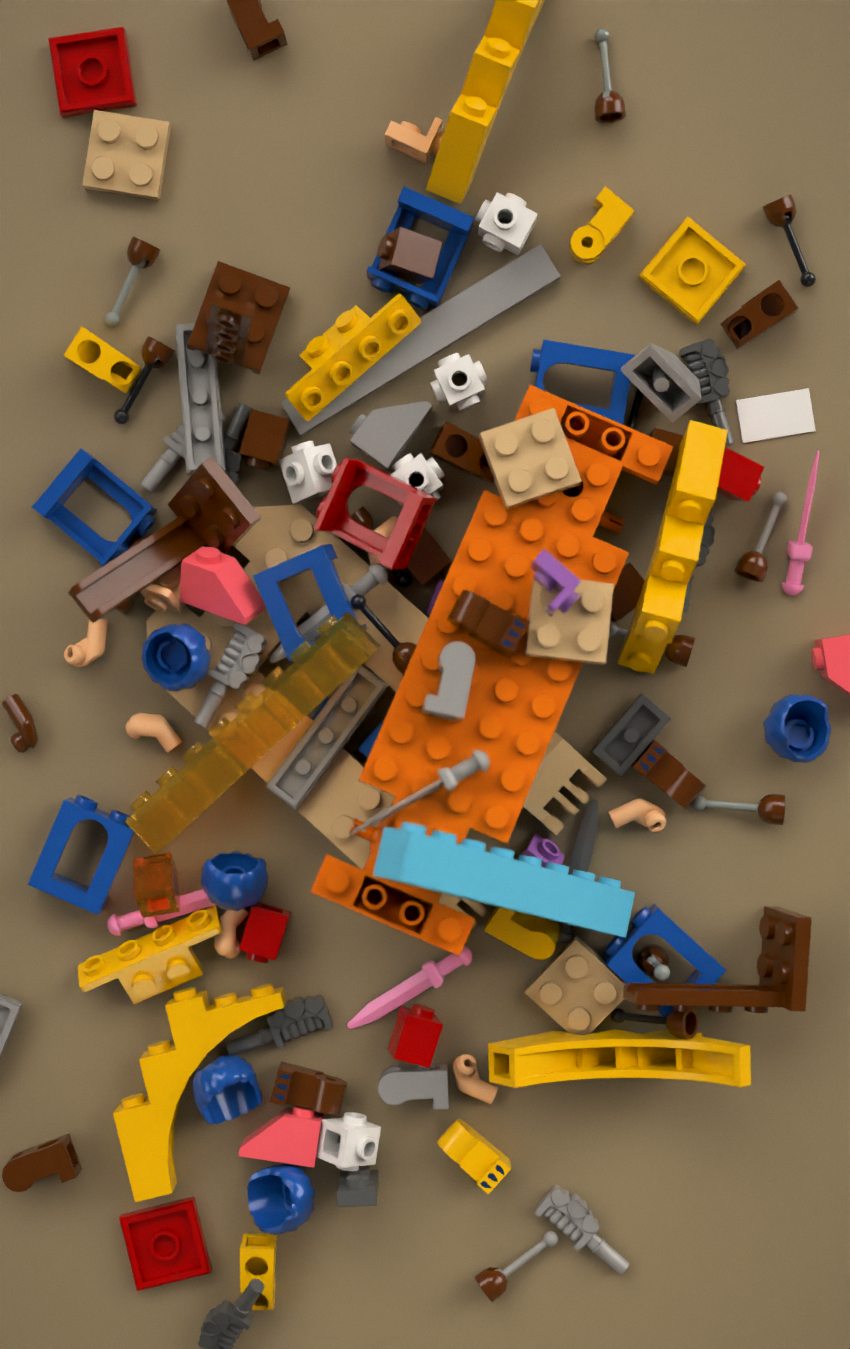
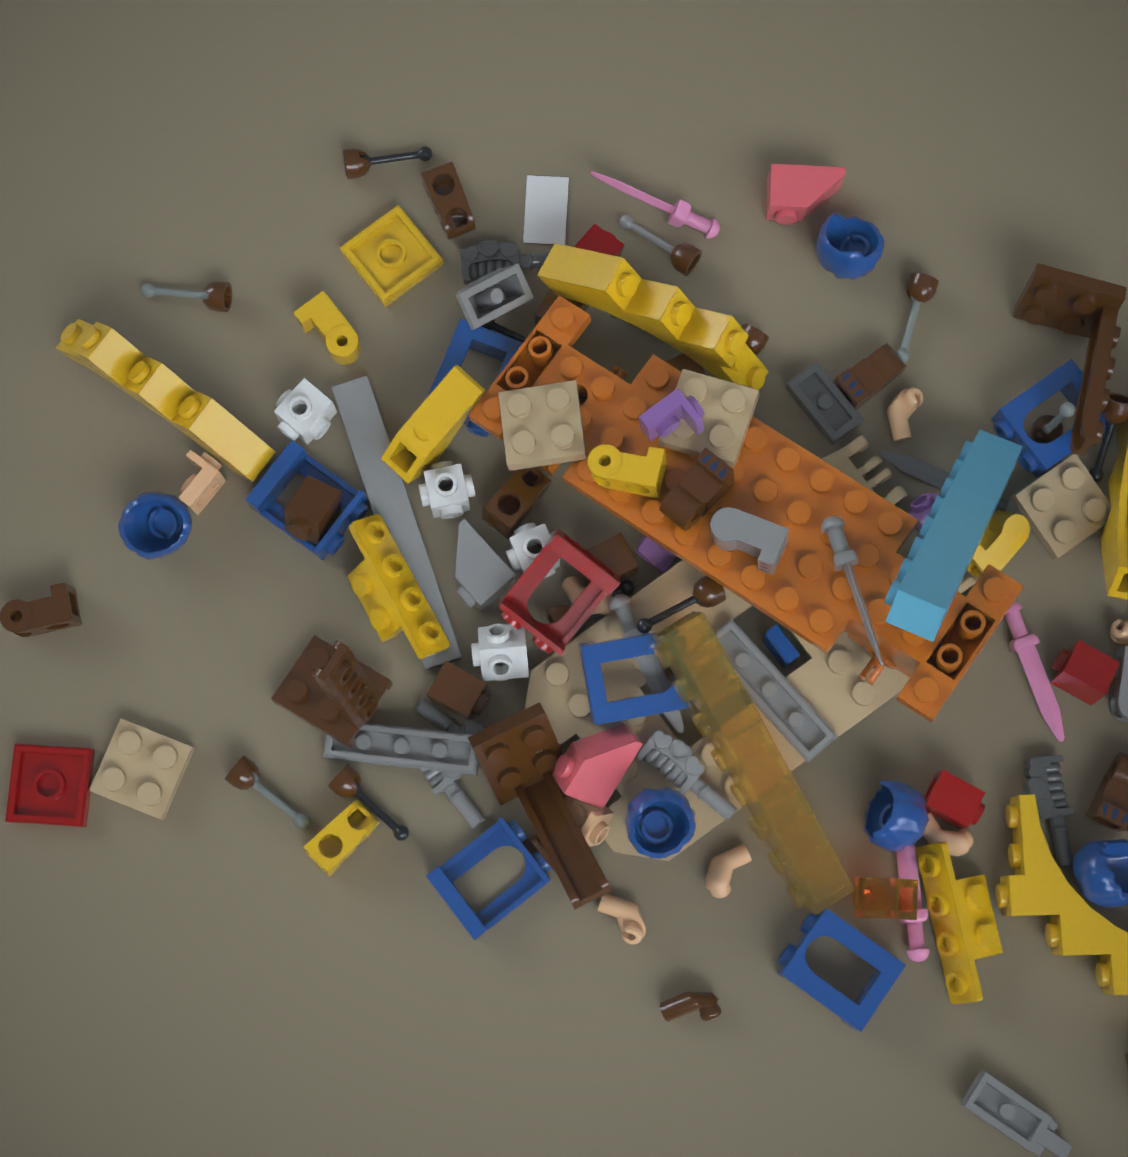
camera: 80 degrees left, 10 degrees down
(360, 104) = (155, 524): none -> blue hair
(495, 552) = (628, 471): none -> yellow leg
(515, 352) = (433, 425): none -> yellow slope

